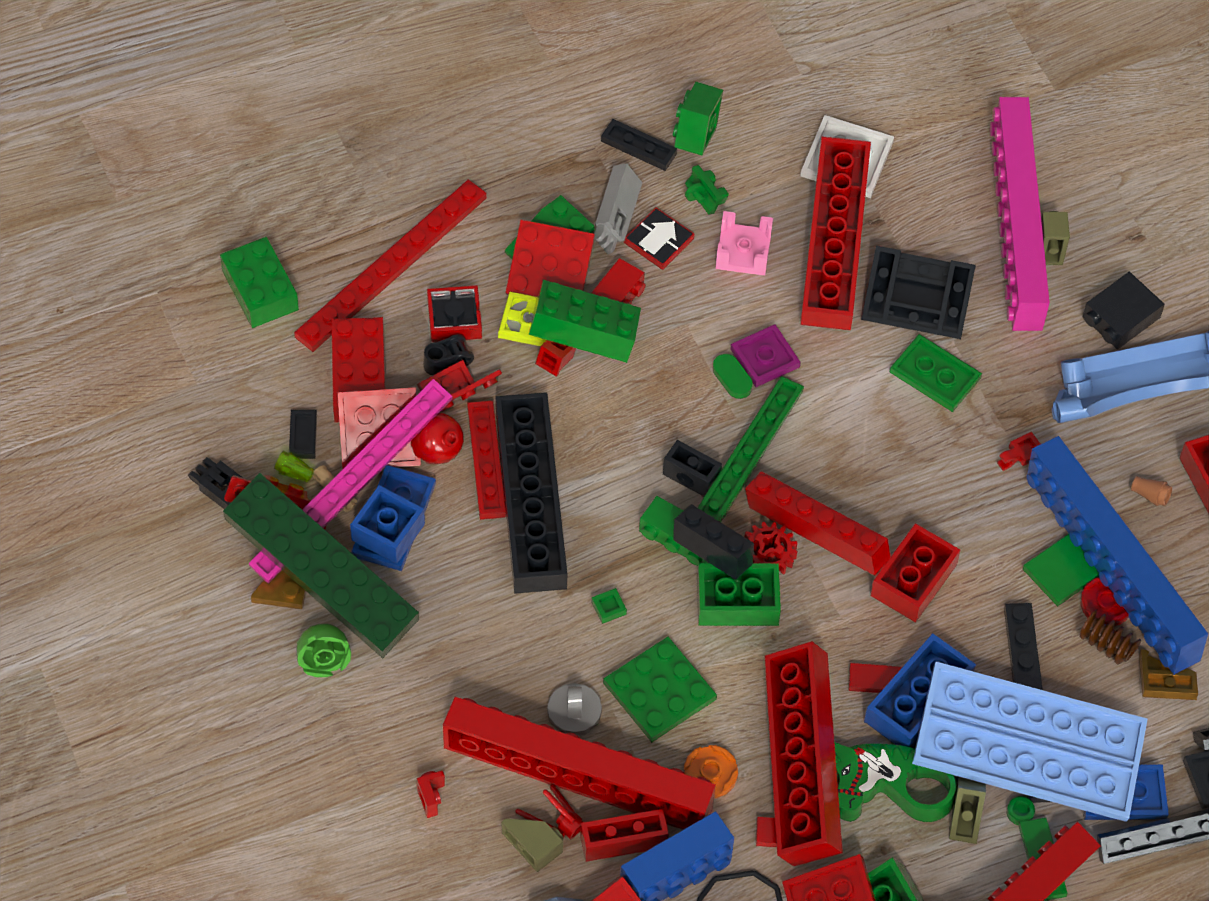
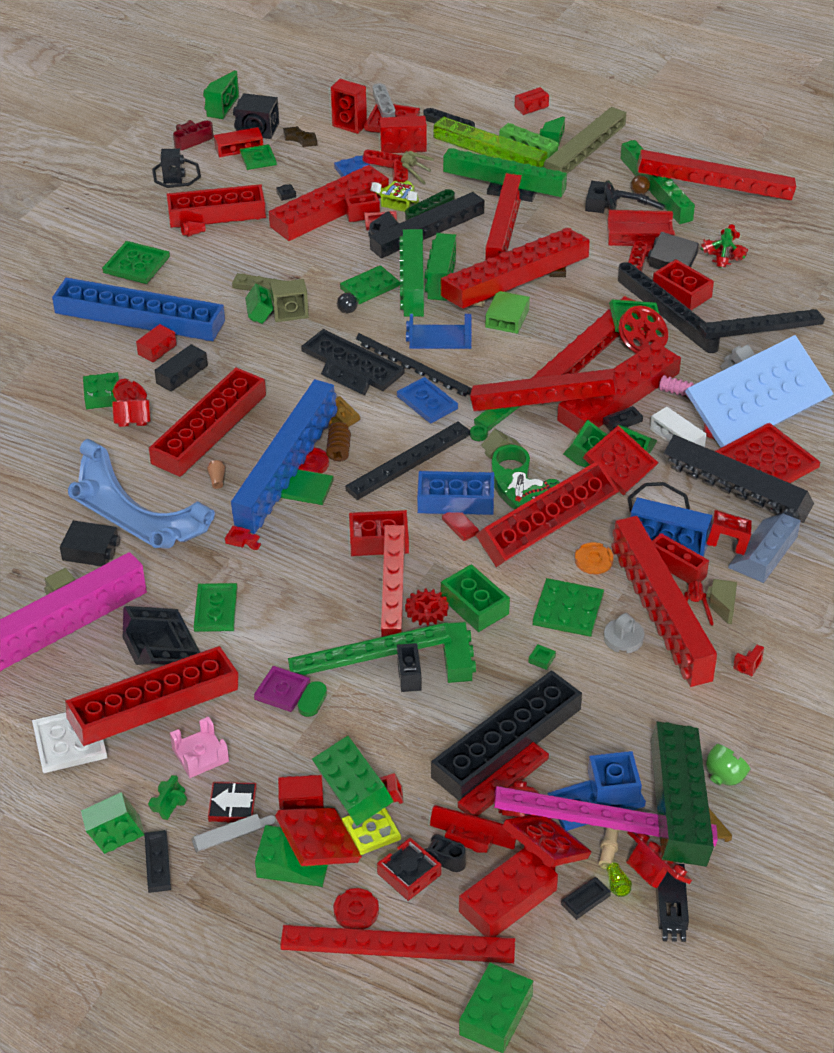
camera: 125 degrees left, 15 degrees down
(456, 258) = (356, 909): none -> red tile
(713, 541) = (461, 609): black brick -> none
(766, 832) = (602, 515): red tile -> none
(1030, 741) = (443, 433): light blue plate -> none

